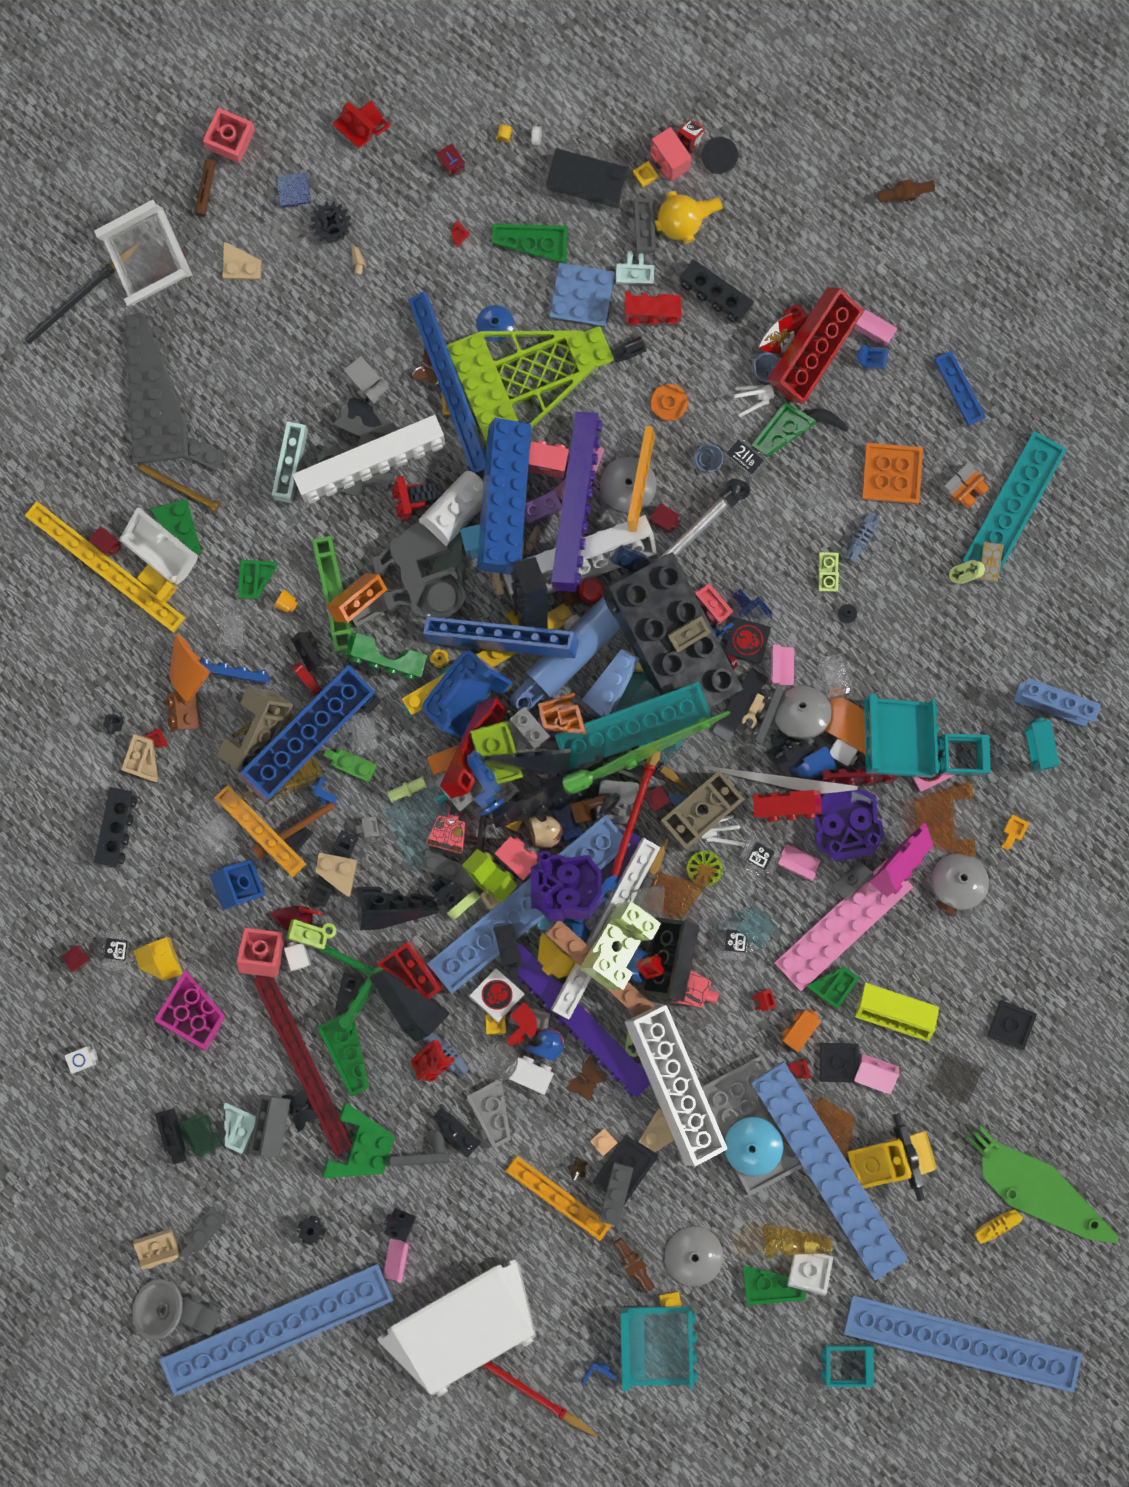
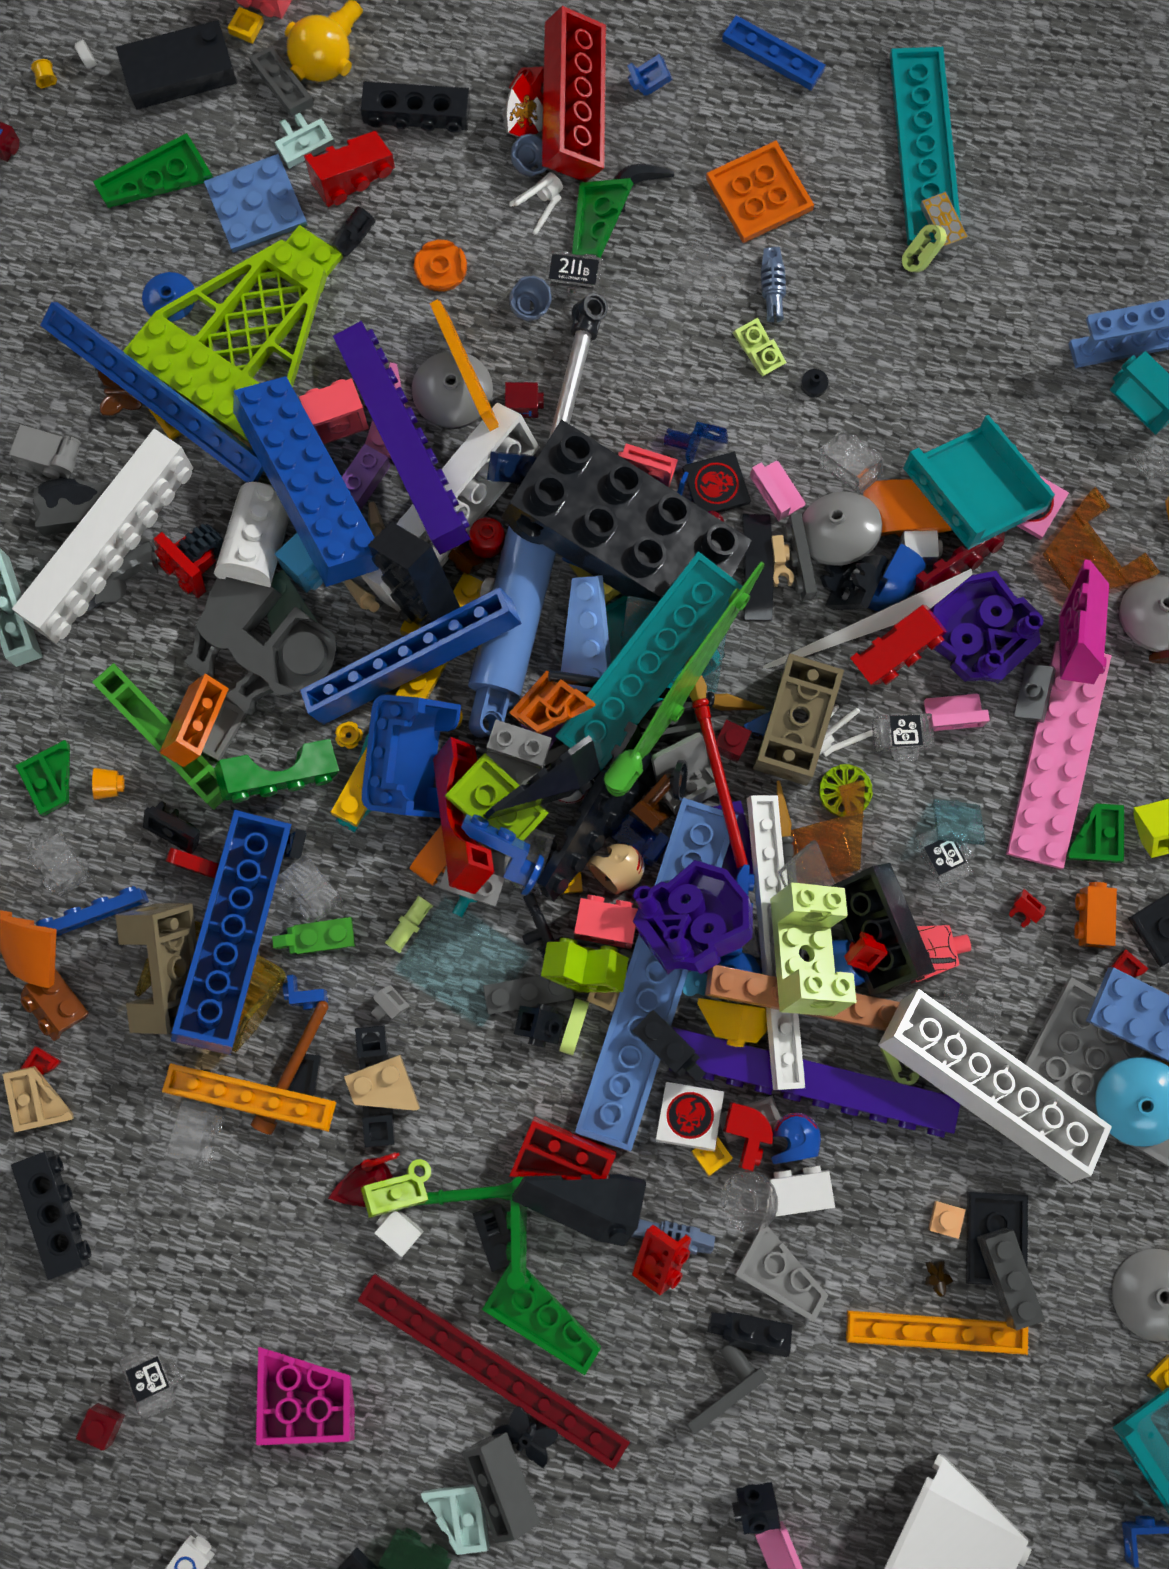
camera: 30 degrees left, 5 degrees down
(158, 959) = (215, 1354): yellow slope -> none
(237, 884) = (260, 1187): blue slope -> none
(260, 952) = (346, 1258): coral brick -> none
(368, 1150) = (652, 1434): green wing -> none
(382, 910) = (475, 1098): black wedge -> none
(448, 832) = (496, 945): torso -> none
(459, 234) = (60, 218): red tile -> none
(588, 1079) = (875, 1152): reddish brown piece -> none
(633, 1265) = (1091, 1358): reddish brown pin -> none
(657, 1133) = (1006, 1162): tan wing -> none
(689, 633) = (646, 503): dark tan plate -> none
(875, 328) = (631, 44): bright pink panel -> none
(963, 484) = (850, 155): orange hips -> none
(982, 754) = (1077, 437): teal window -> none

